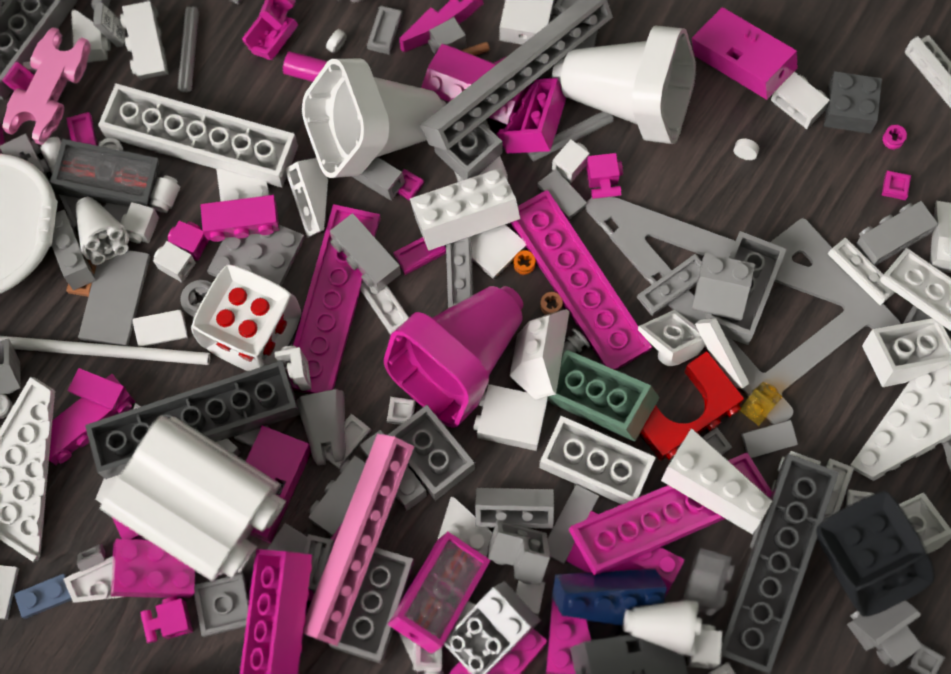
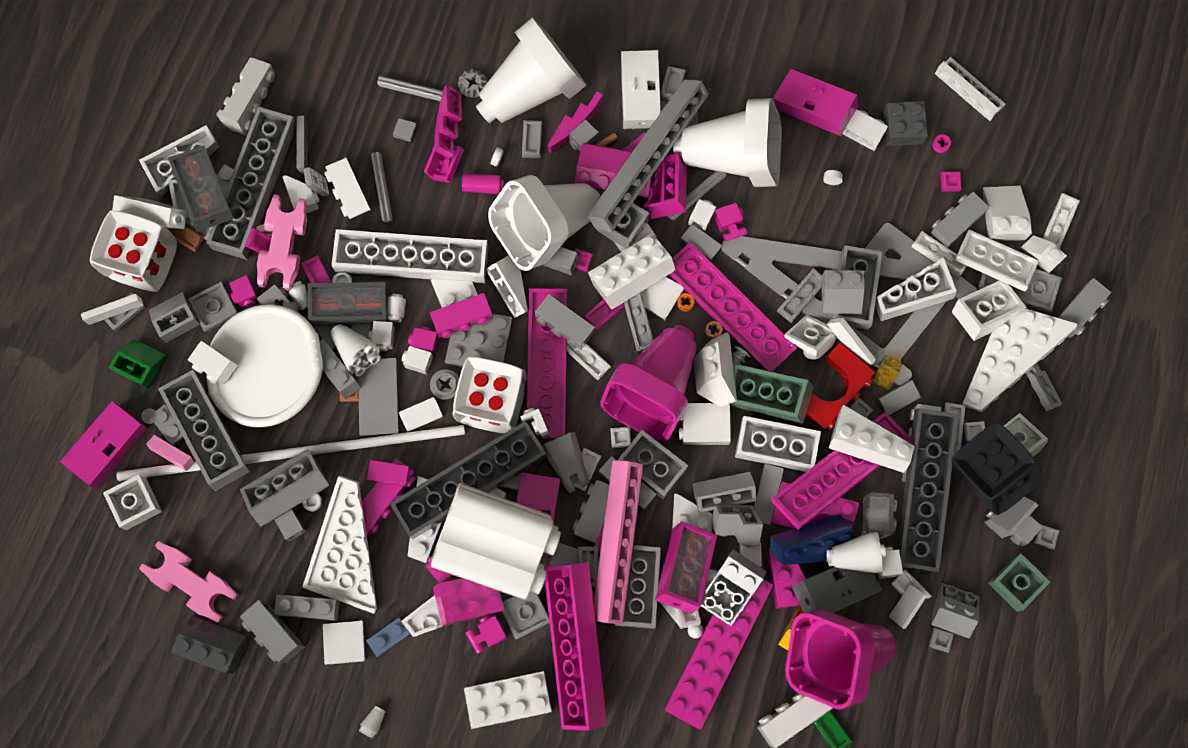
camera: 15 degrees left, 5 degrees up
(91, 557) = (417, 600): light grey tile -> none
(822, 310) = (919, 291): none -> white wedge

